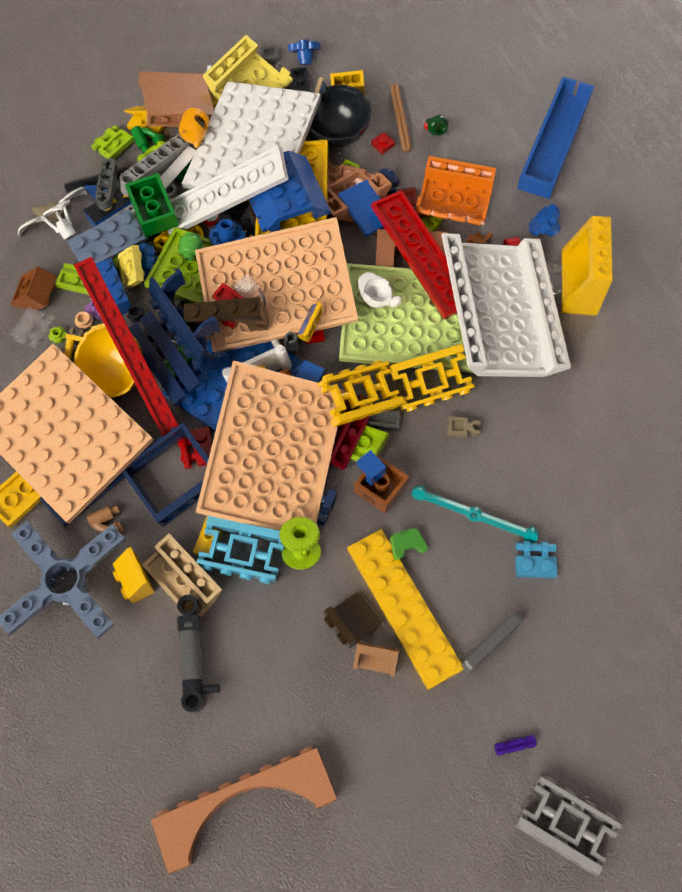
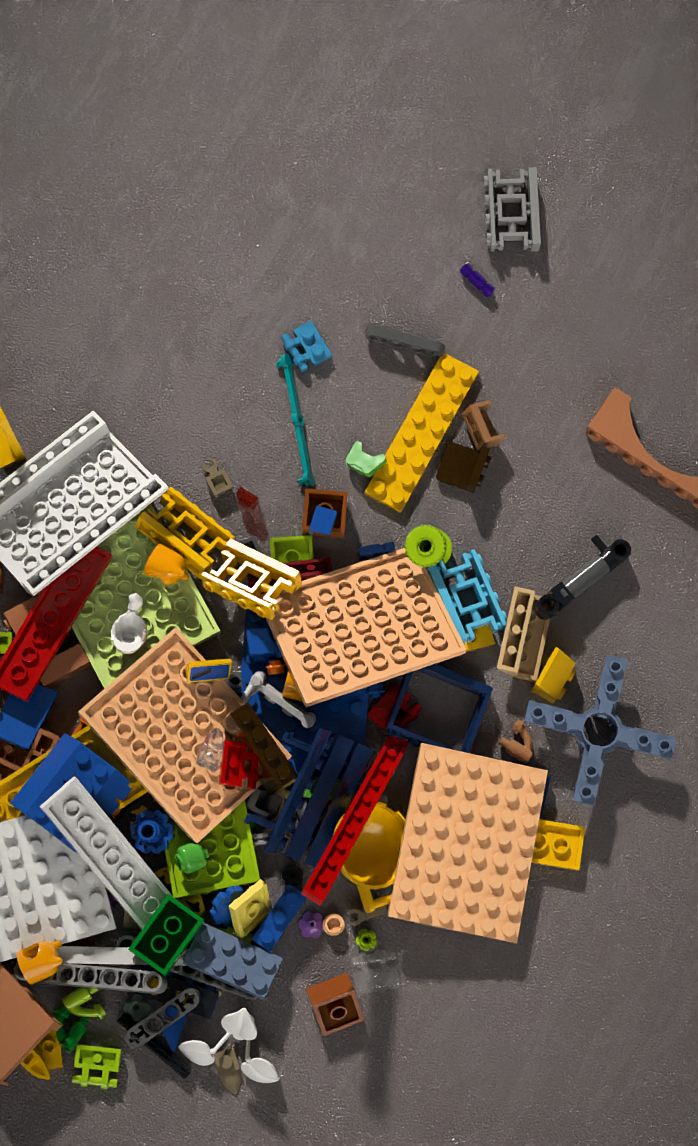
camera: 130 degrees left, 10 degrees up
(70, 280) = (293, 970): lime plate -> none
(411, 343) = (166, 565): none -> light orange piece
(431, 438) = (247, 499): none -> clear red plate

